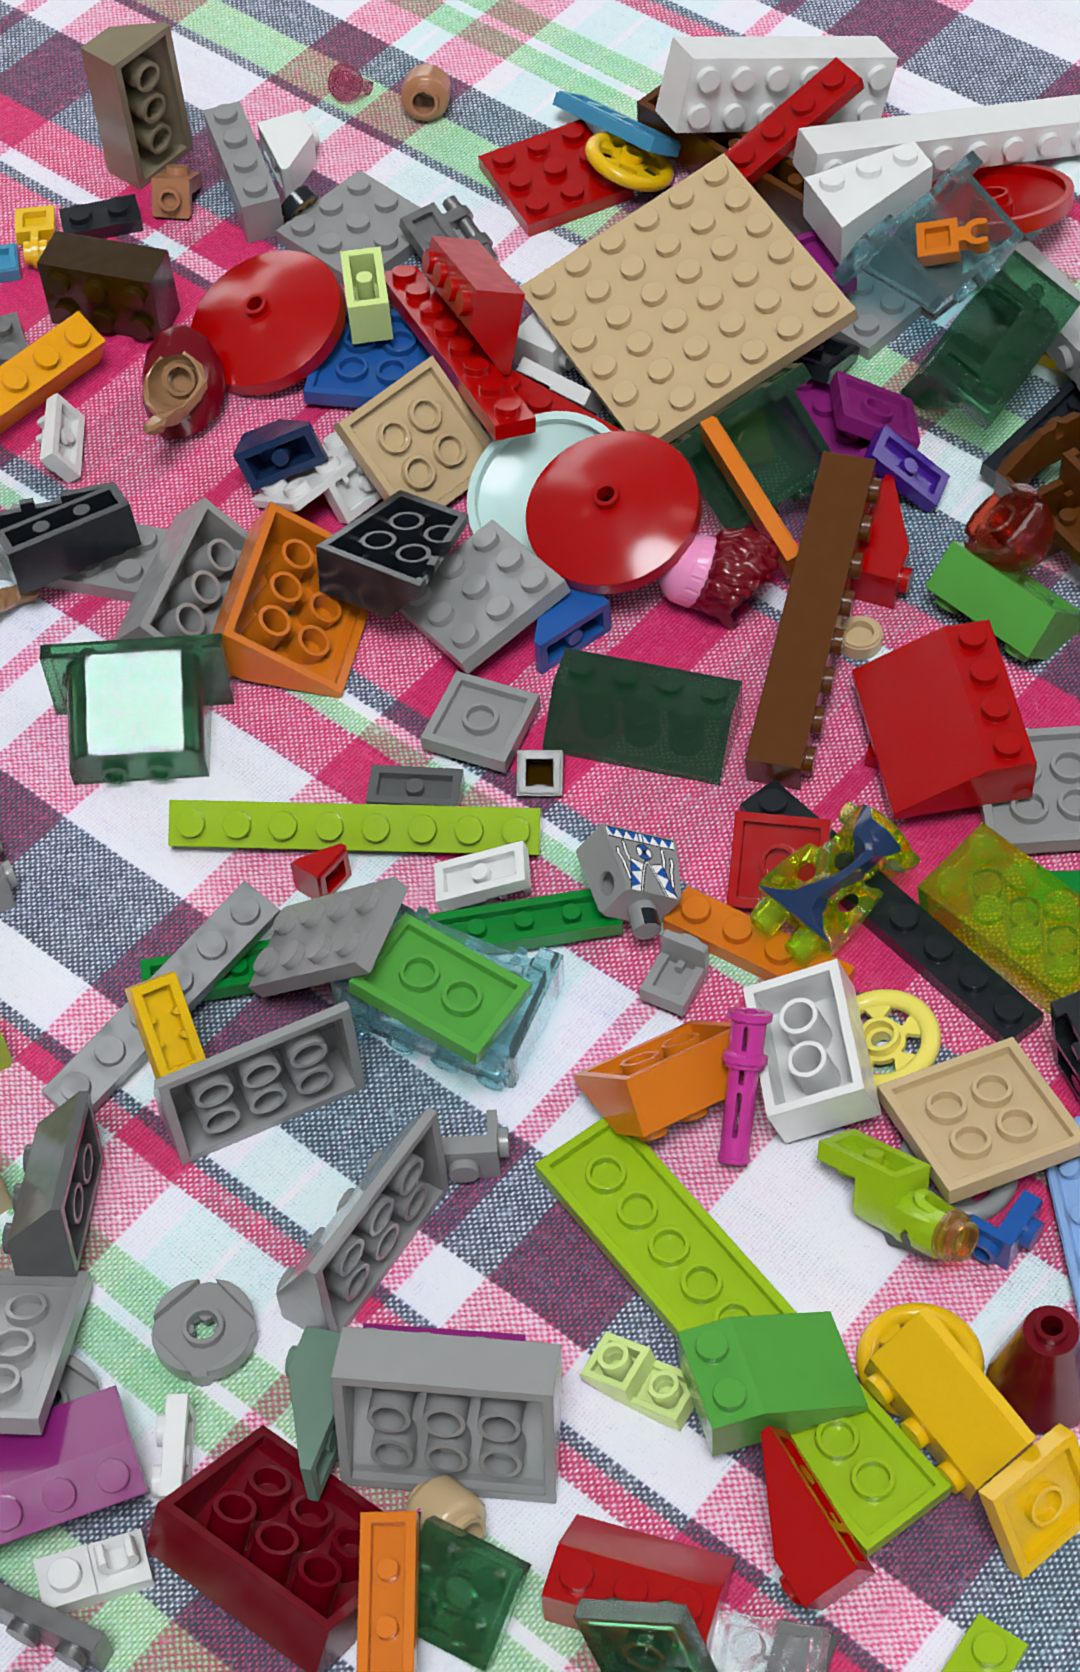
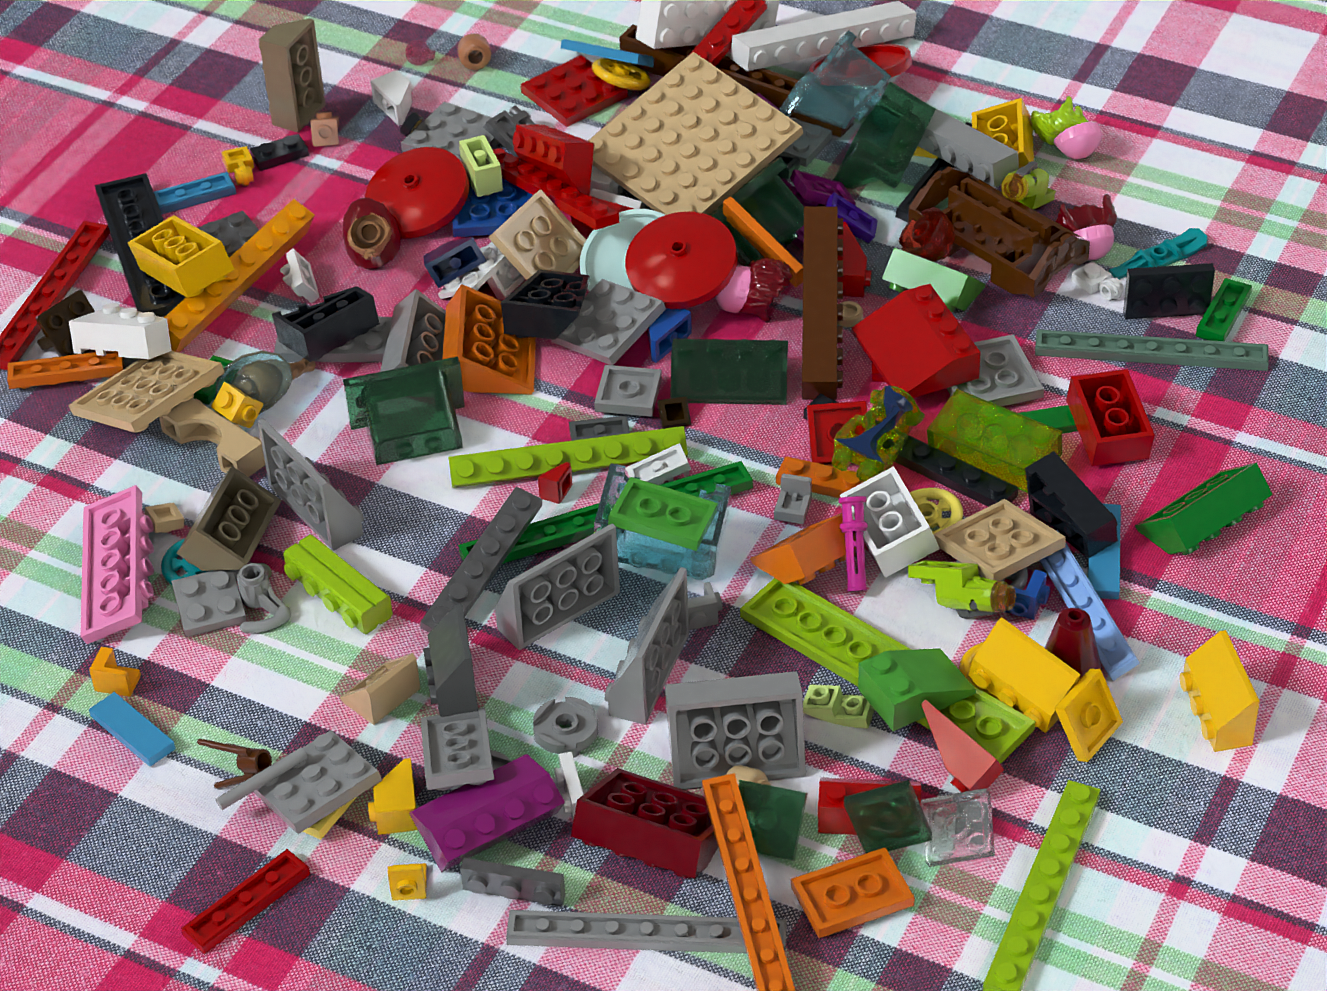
camera: 15 degrees left, 10 degrees down
(94, 1572) = (544, 854): white plate -> none
(111, 283) = (311, 179): dark brown brick -> none
(165, 1024) = (493, 563): yellow tile -> none
(243, 171) = (368, 110): light grey brick -> none
(309, 1376) = (651, 742): sand green slope -> none
(327, 938) = (583, 501): light grey plate -> none
(632, 876) = (752, 451): light grey torso -> none
(859, 194) = (779, 69): white wedge -> none
(944, 240) = (843, 86): orange plate -> none

